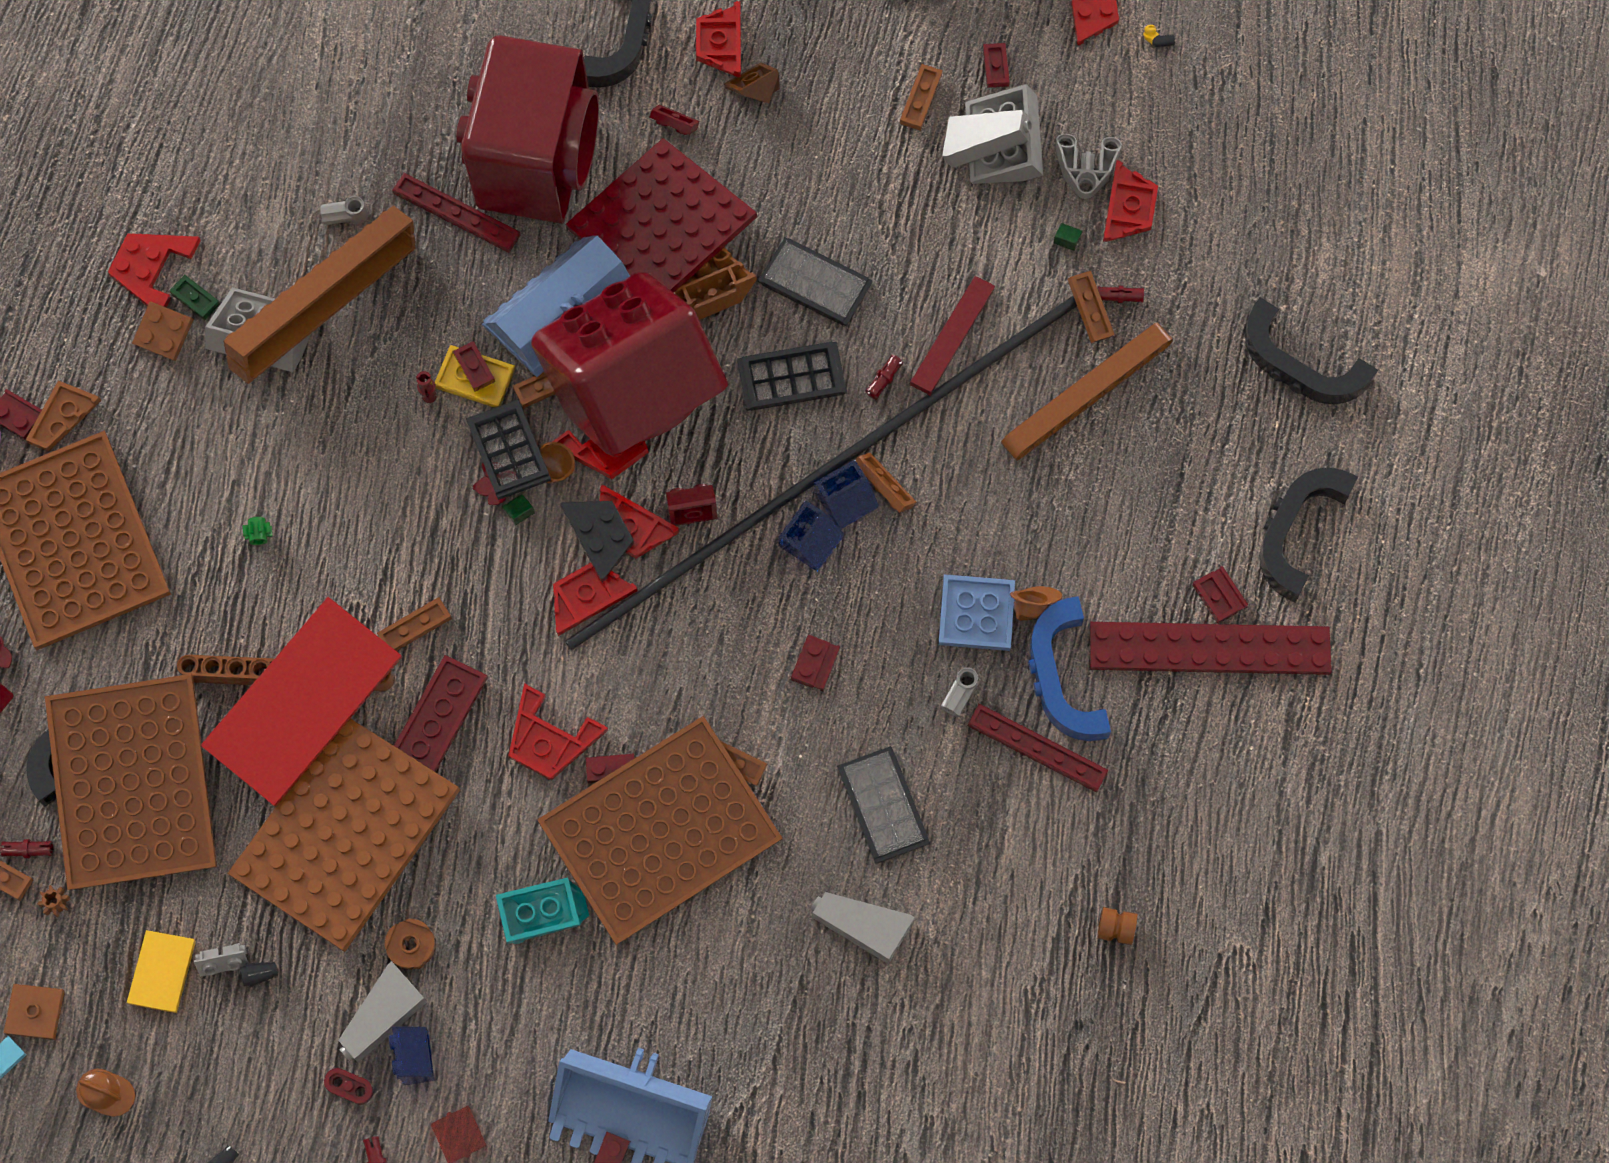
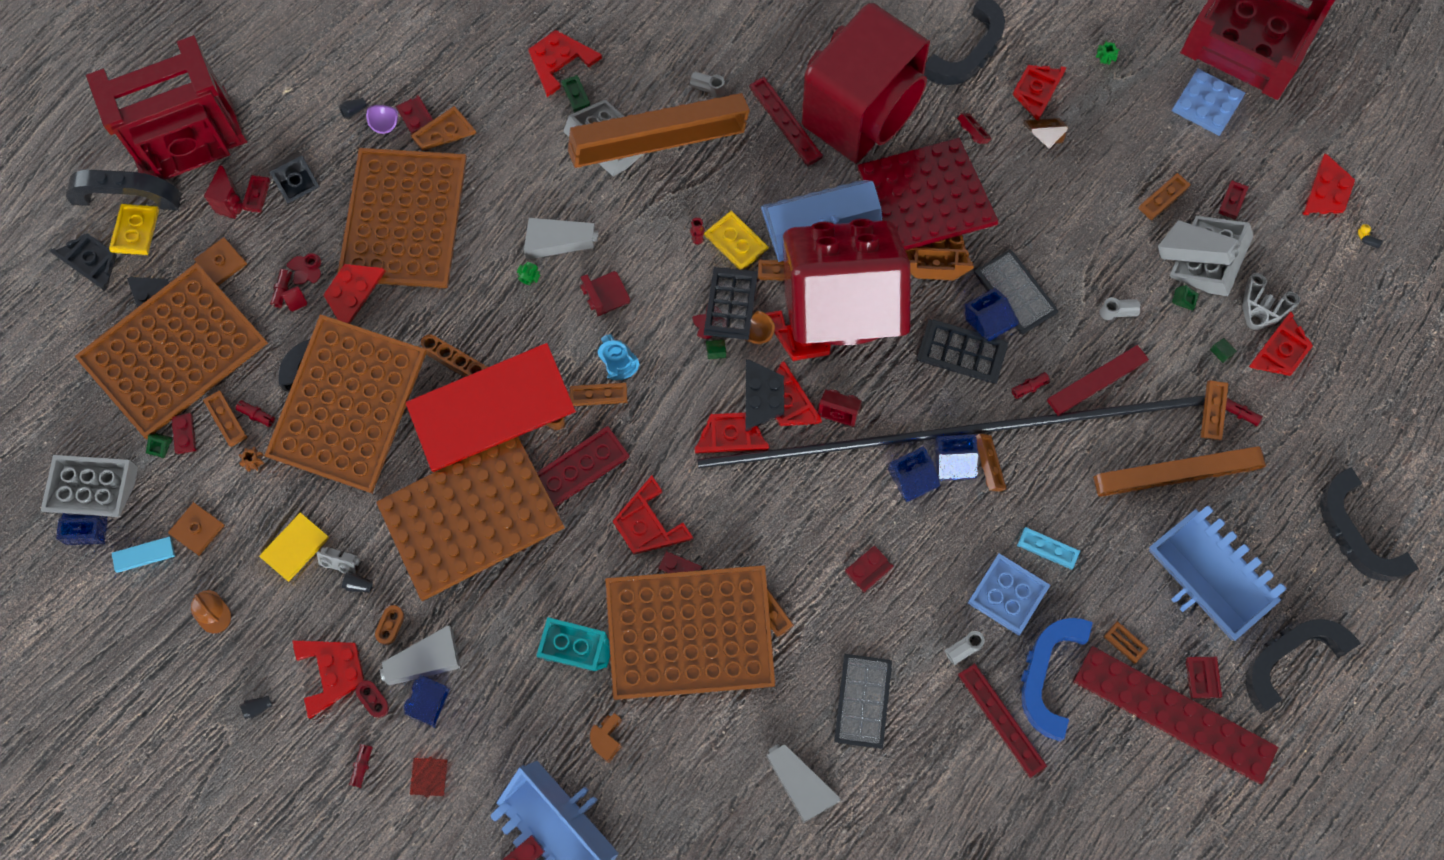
camera: 30 degrees right, 0 degrees up
(60, 651) = (351, 290): none -> red wing
(162, 331) = (541, 106): dark orange plate -> none
(268, 472) = (555, 237): none -> light grey slope
(290, 1075) = (338, 670): none -> red wing
(322, 998) = (386, 624): none -> dark orange plate
(358, 509) = (604, 293): none -> dark red bracket
(415, 575) = (618, 358): none -> dark azure helmet
(417, 956) = (470, 631): dark orange plate -> none
(474, 366) = (738, 232): dark red plate -> none
(629, 995) = (601, 741): none -> dark orange brick
(802, 320) = (991, 314): none -> clear blue slope
(936, 244) = (1120, 308): none -> light grey piece
(993, 542) = (1048, 548): none -> medium azure tile
(999, 198) = (1185, 297): none -> dark green slope
(1034, 601) = (1056, 608): dark orange piece -> none
(1121, 608) = (1121, 648): none -> dark orange tile
(1177, 479) = (1216, 573): none -> medium blue piece

